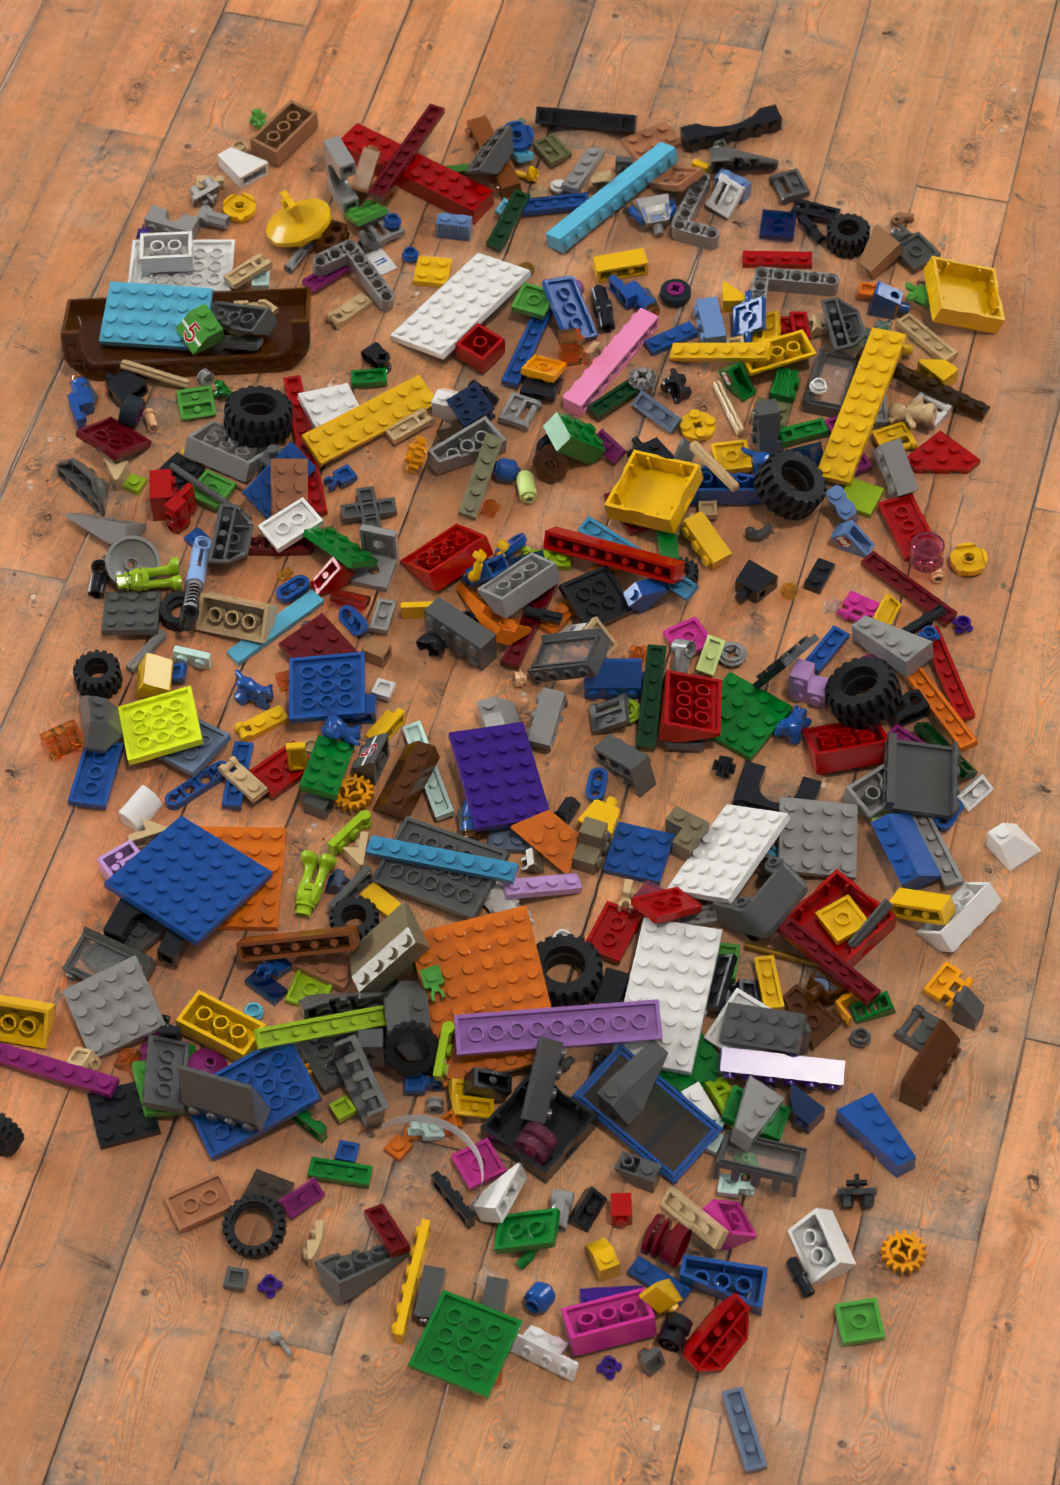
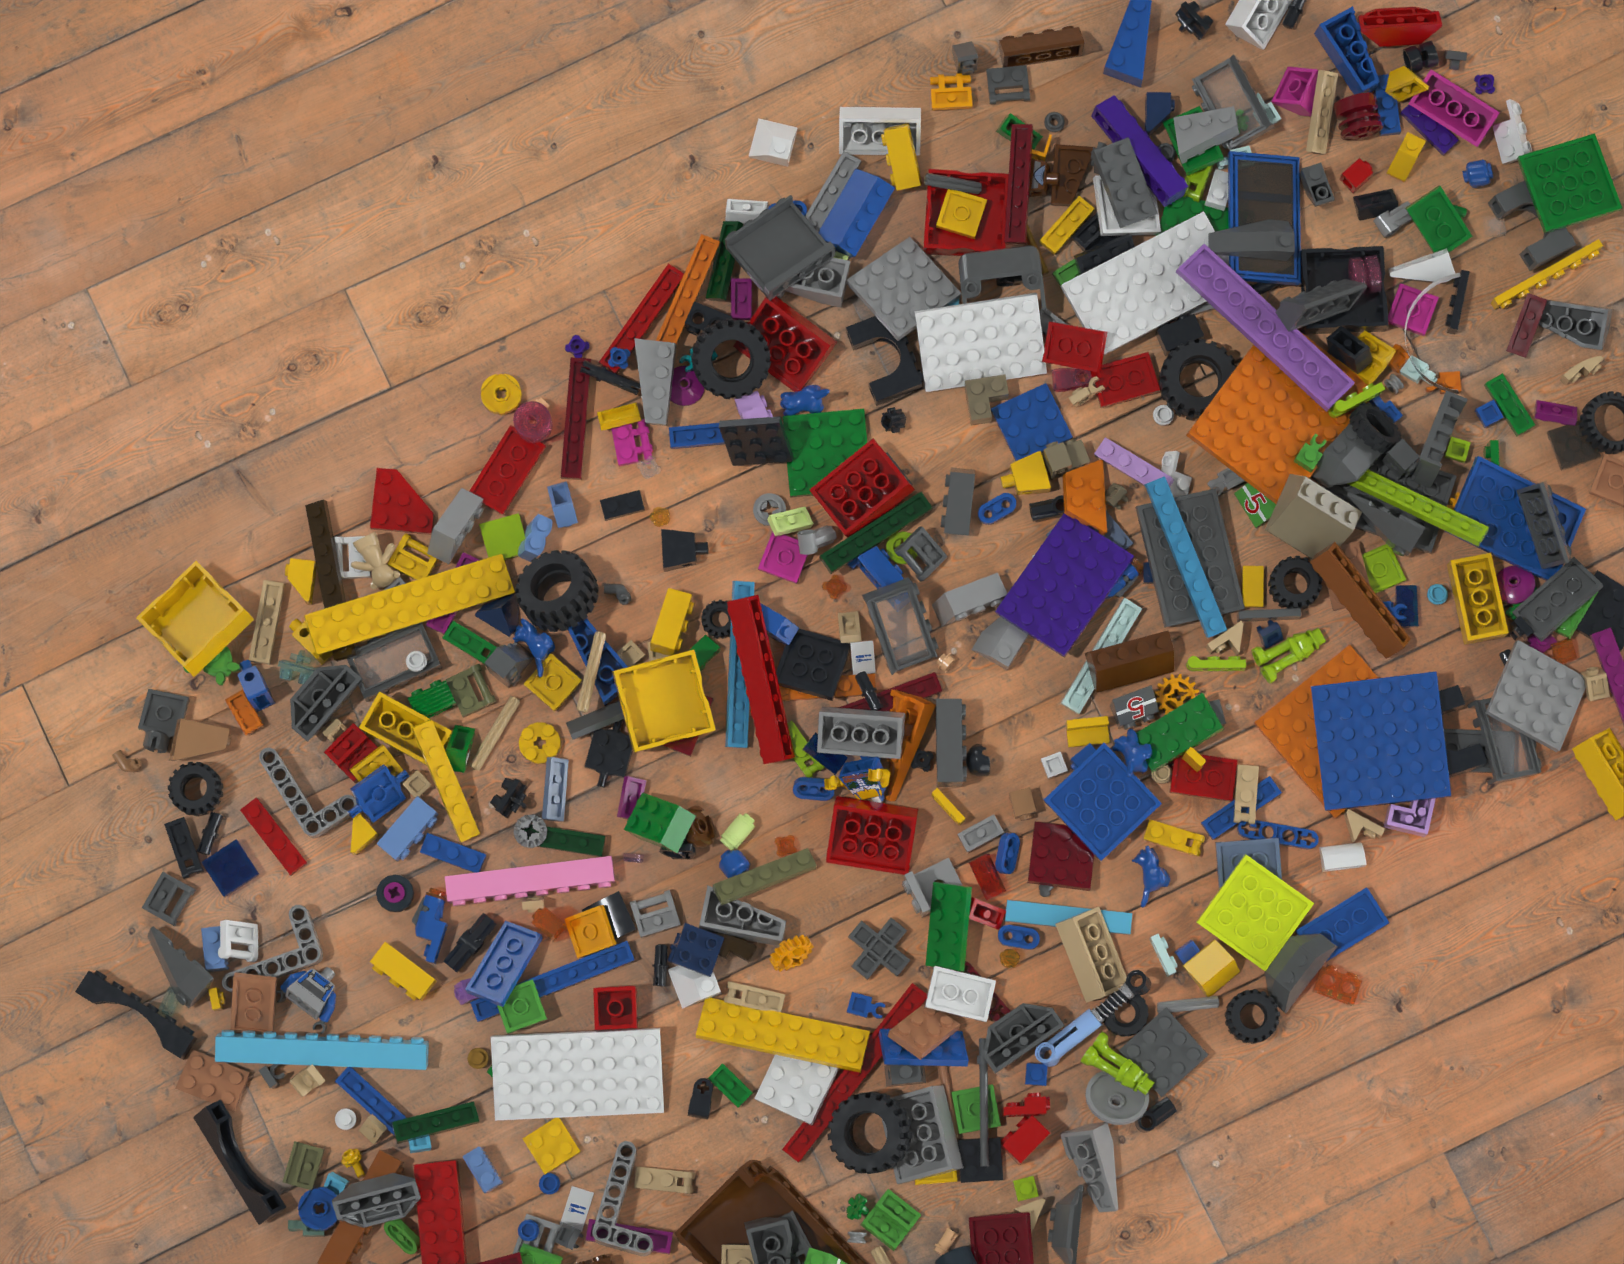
camera: 130 degrees left, 25 degrees up
(283, 680) = (1114, 859): clear orange plate -> none
(582, 170) = (307, 1111): light grey plate -> none

